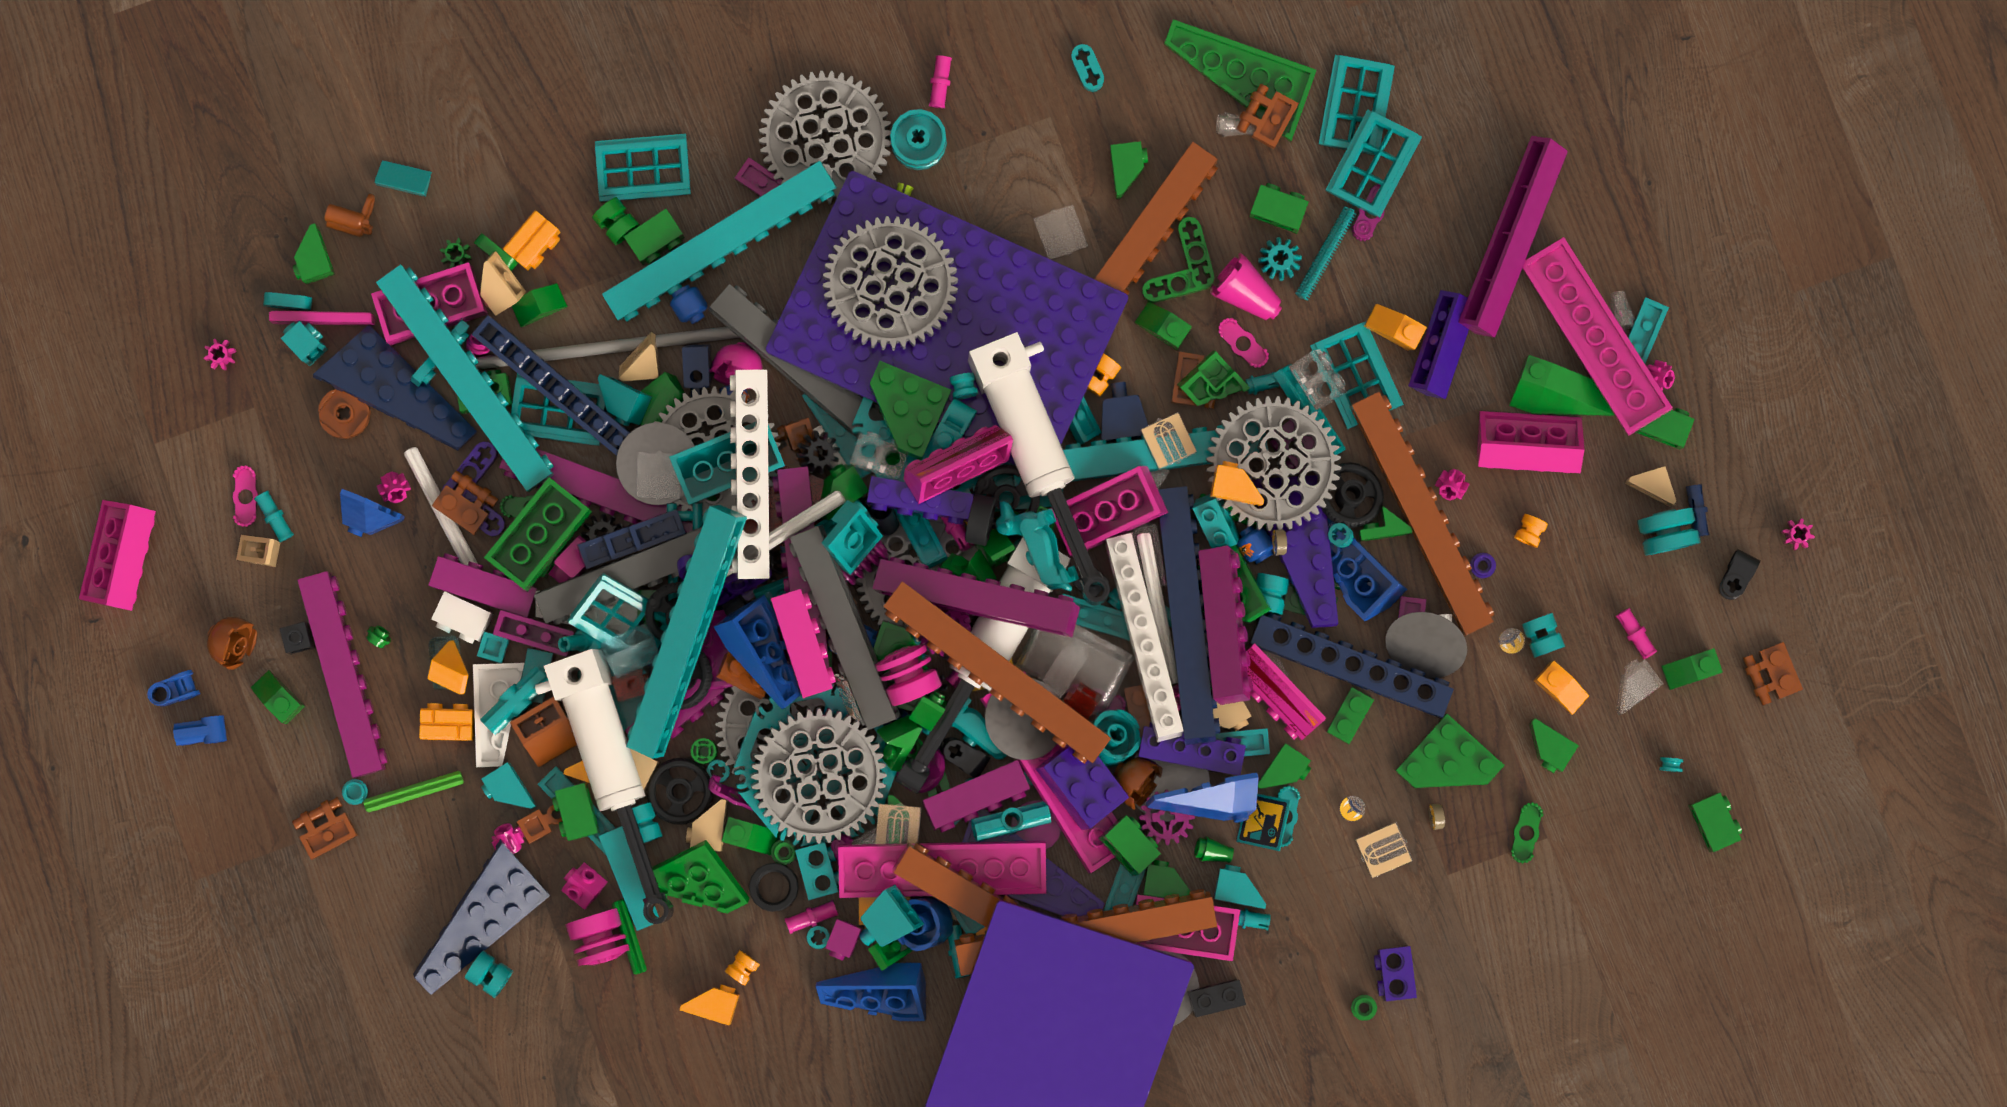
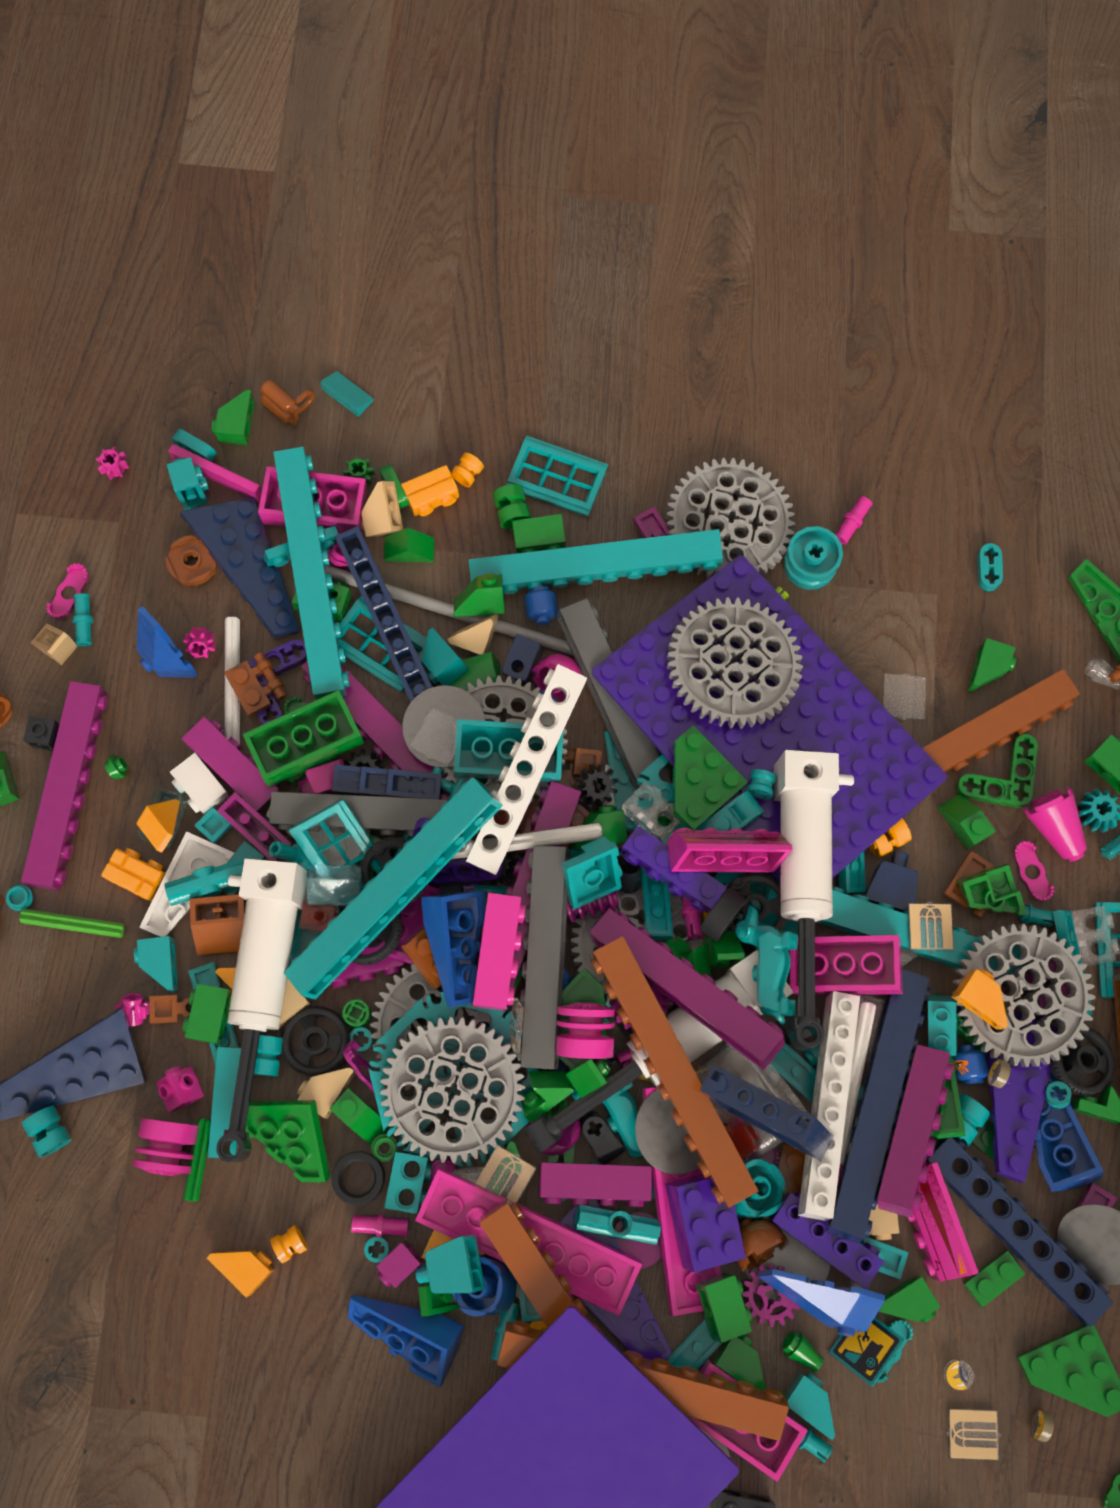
camera: 20 degrees right, 10 degrees down
(556, 201) = (467, 469): none -> light orange wheel
(631, 325) = (481, 597): none -> green slope
(1089, 671) = (767, 1112): none -> dark blue window

